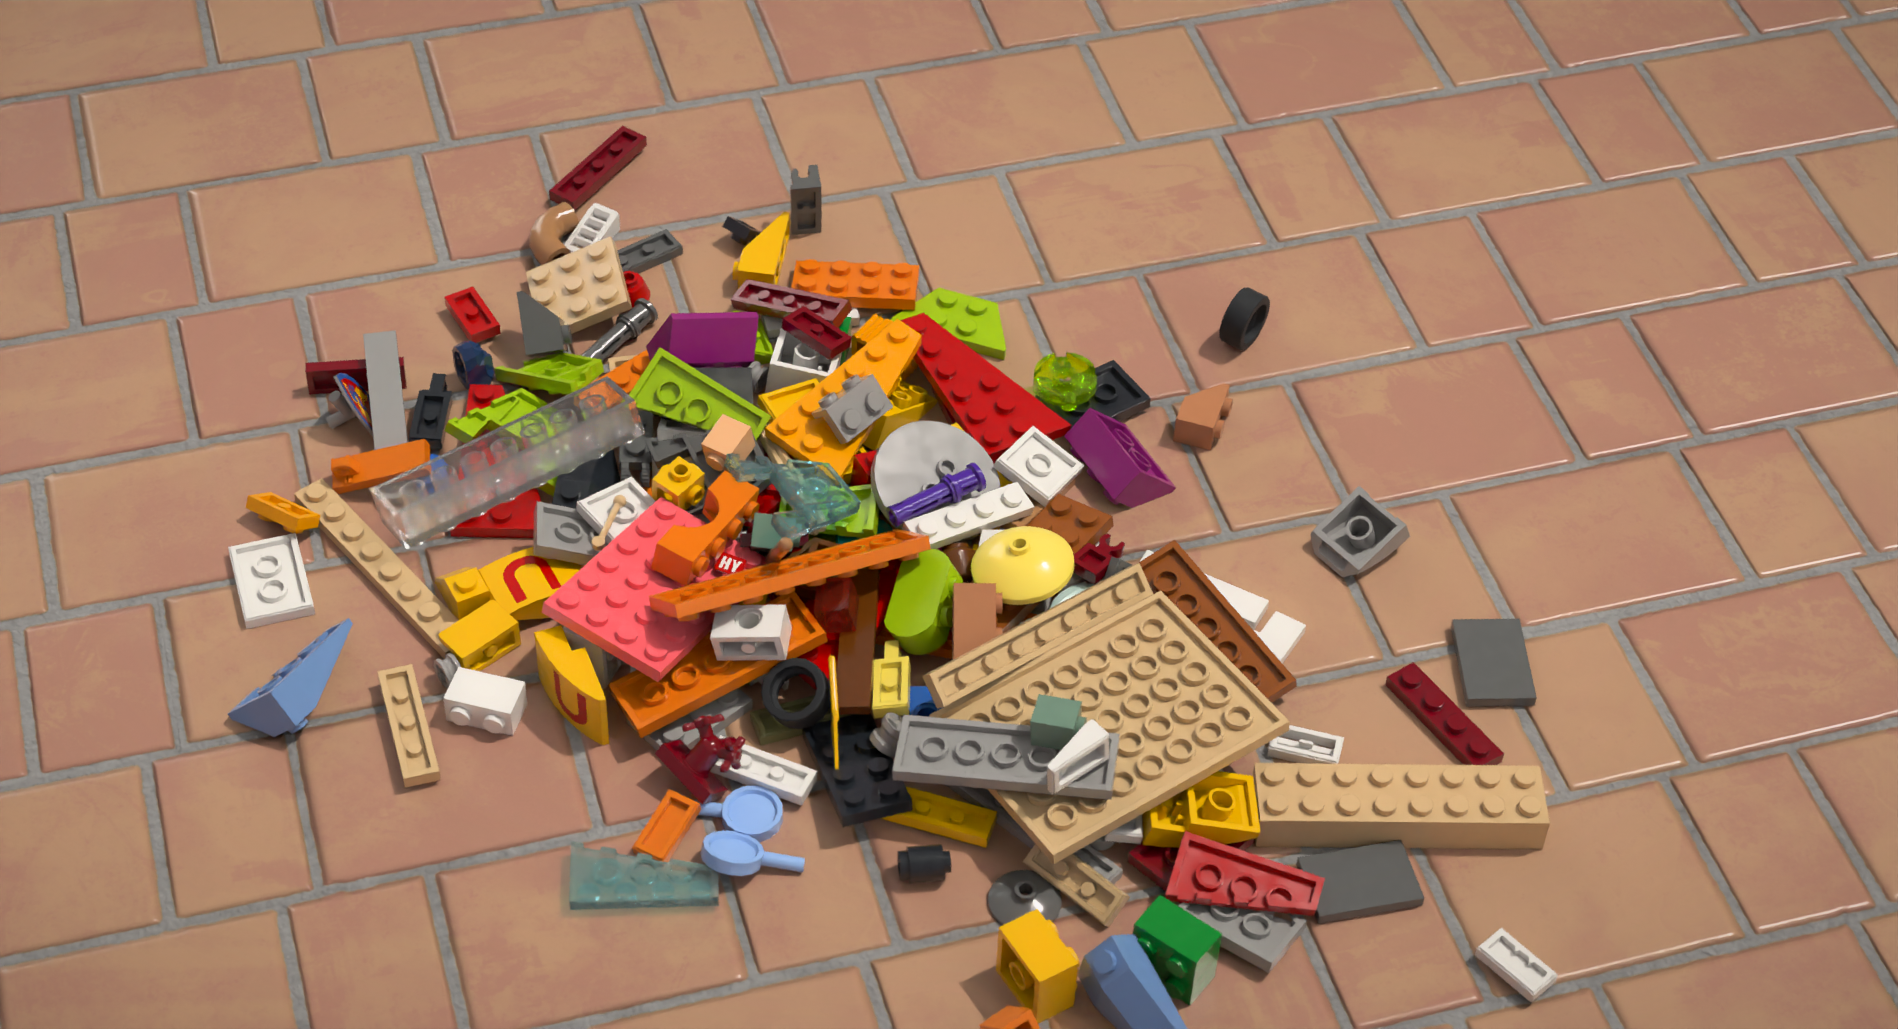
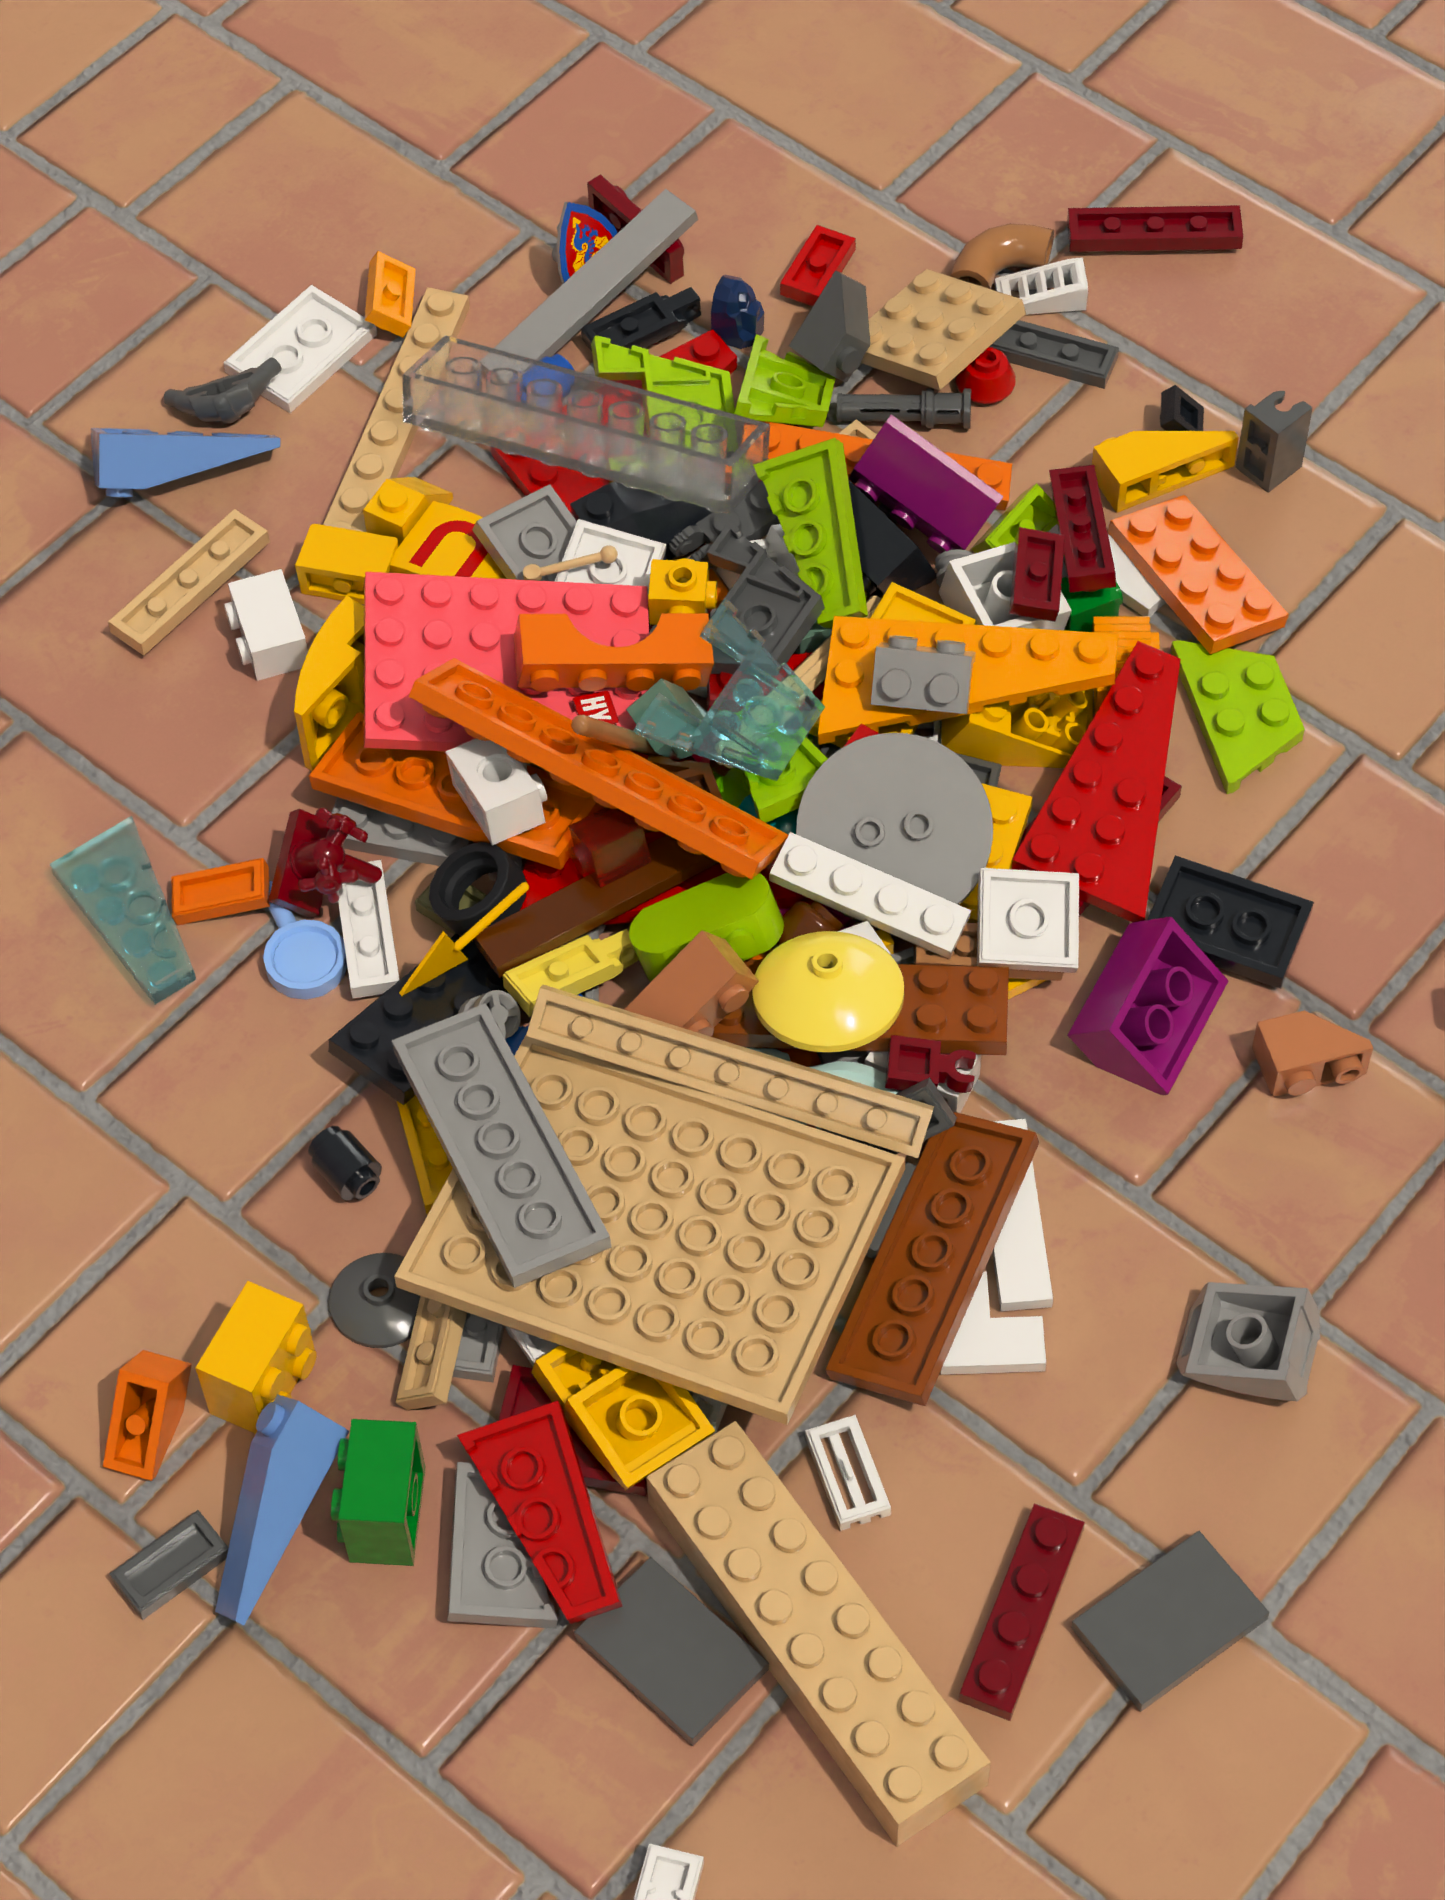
camera: 60 degrees right, 10 degrees up
(278, 632) = (225, 397): none -> dark grey piece
(377, 466) = (509, 324): orange hinge -> none
(446, 668) = (286, 560): light grey bush -> none
(726, 438) = (763, 594): light nougat brick -> none
(742, 855) = (230, 976): light blue piece -> none
(949, 489) = (877, 845): dark purple pin -> none
(1055, 721) = (559, 1158): sand green brick -> none
(1065, 393) = (1217, 892): clear neon green plate -> none
(1079, 756) = (523, 1209): white slope -> none

